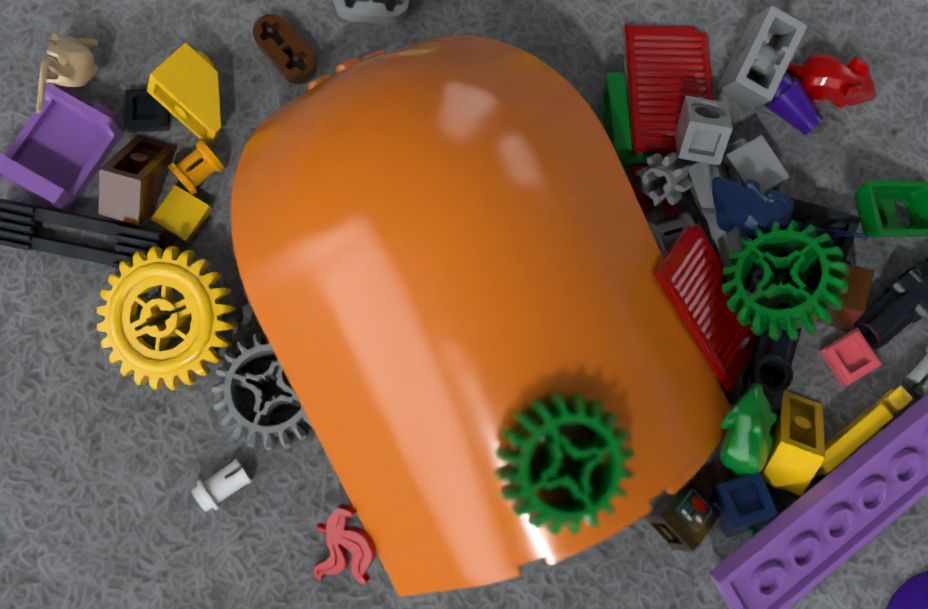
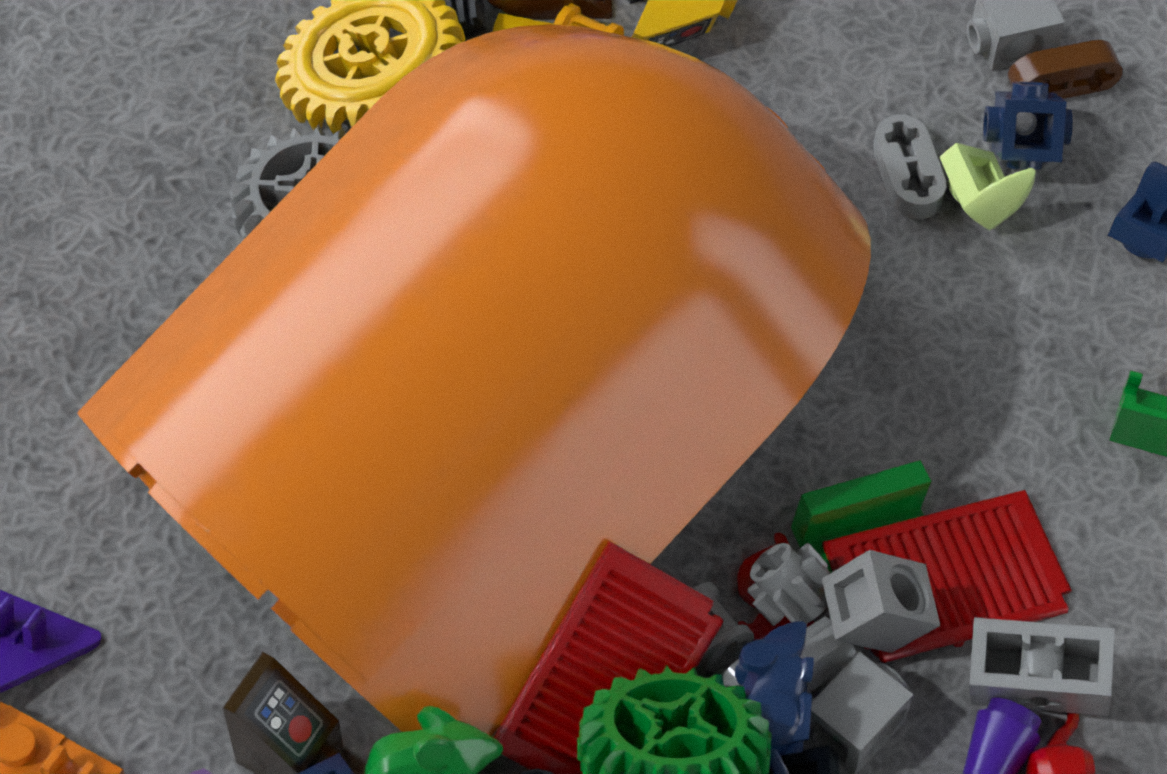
camera: 75 degrees right, 20 degrees down
(220, 485) = (160, 176): white pin -> none
(278, 54) = (805, 95): reddish brown beam -> none
(341, 538) = (128, 332): piece -> none
(602, 448) = (257, 448): green gear -> none

